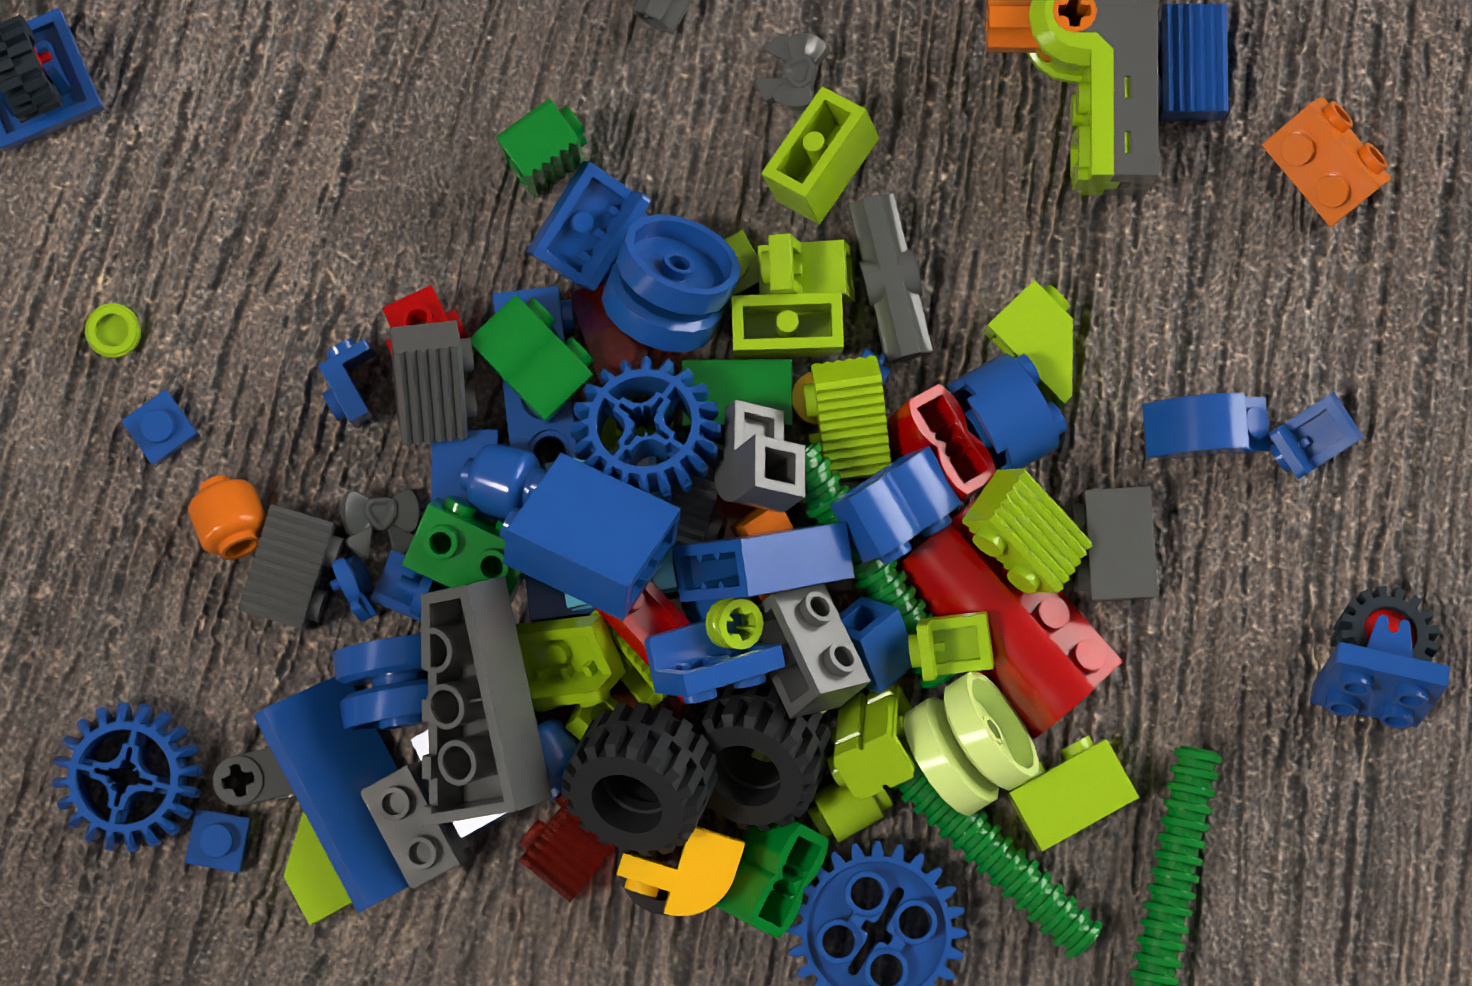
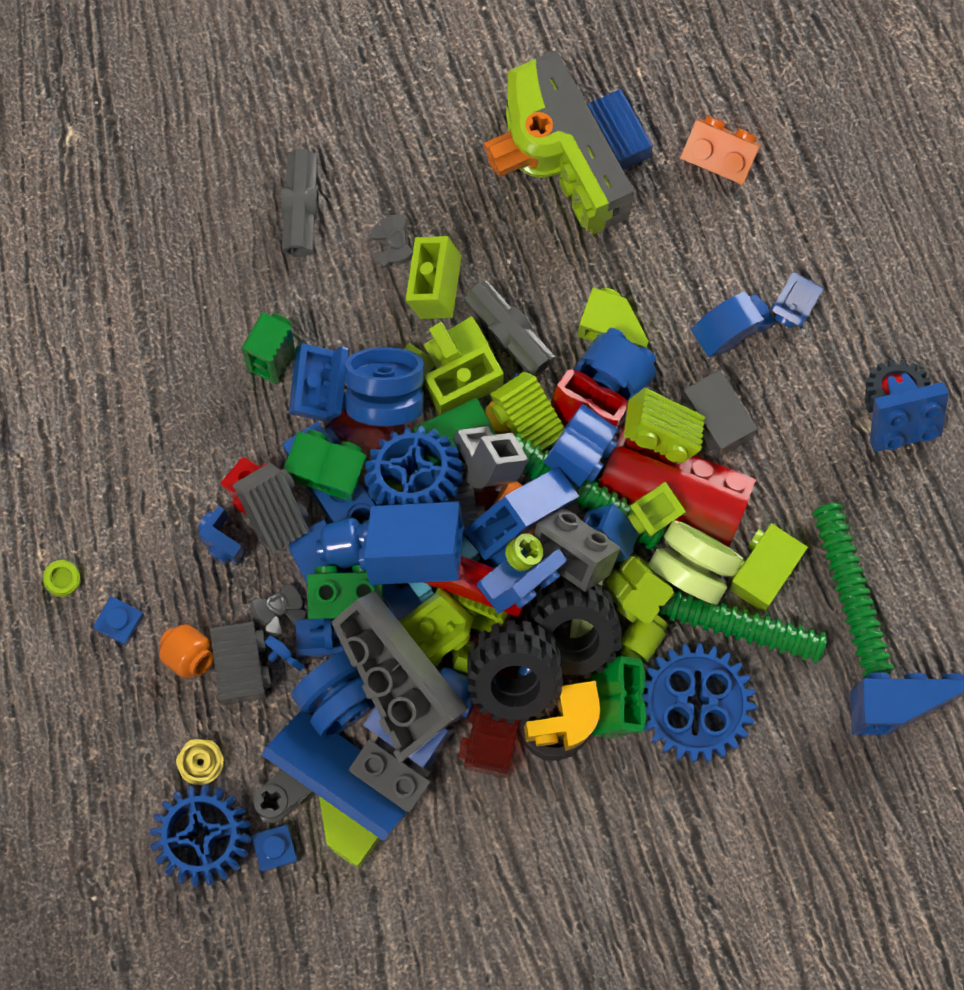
camera: 30 degrees left, 10 degrees down
(158, 672) = (196, 750): none -> light yellow plate

